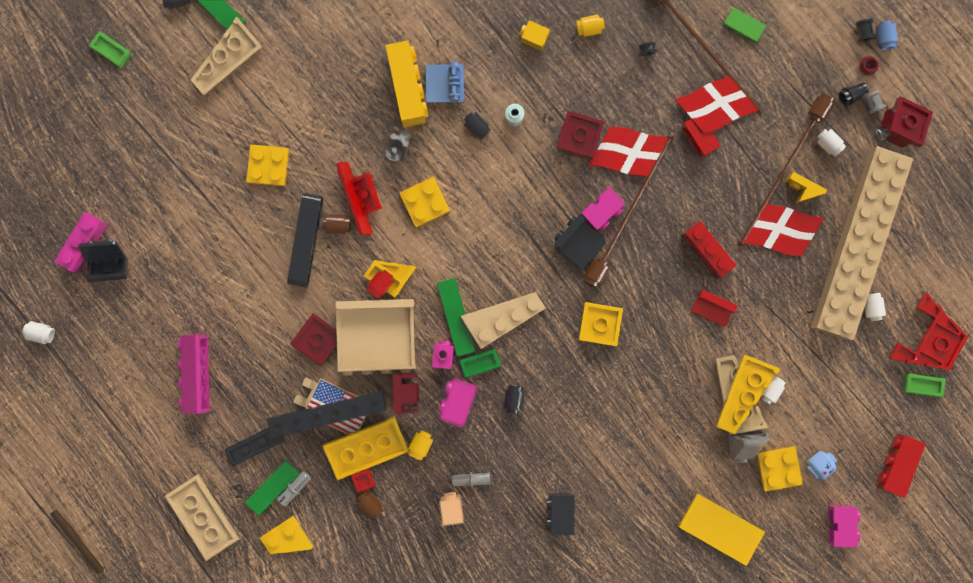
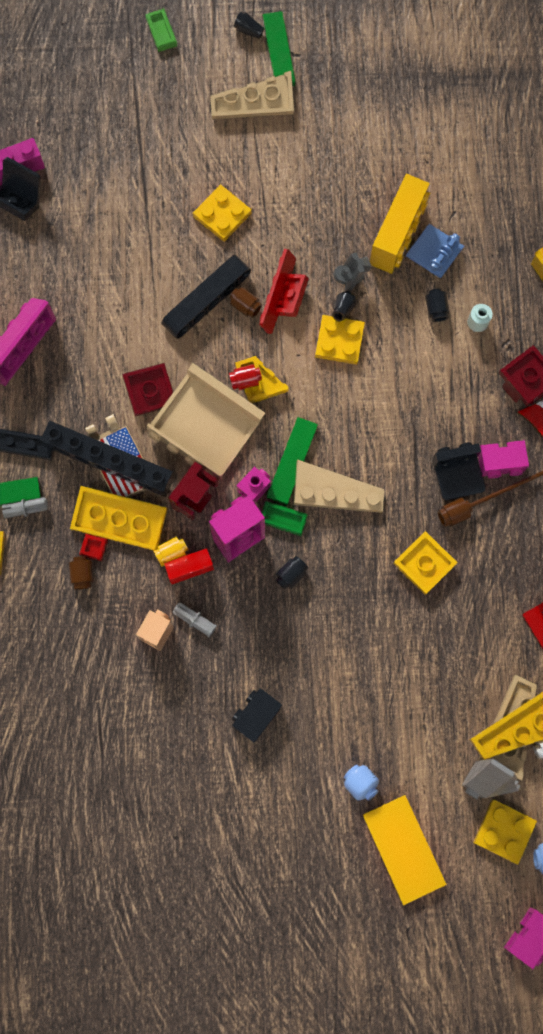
camera: 40 degrees right, 10 degrees down
(409, 173) = (344, 304): none -> black cone
(441, 447) = (189, 566): none -> red panel
(663, 507) = (361, 782): none -> light blue head

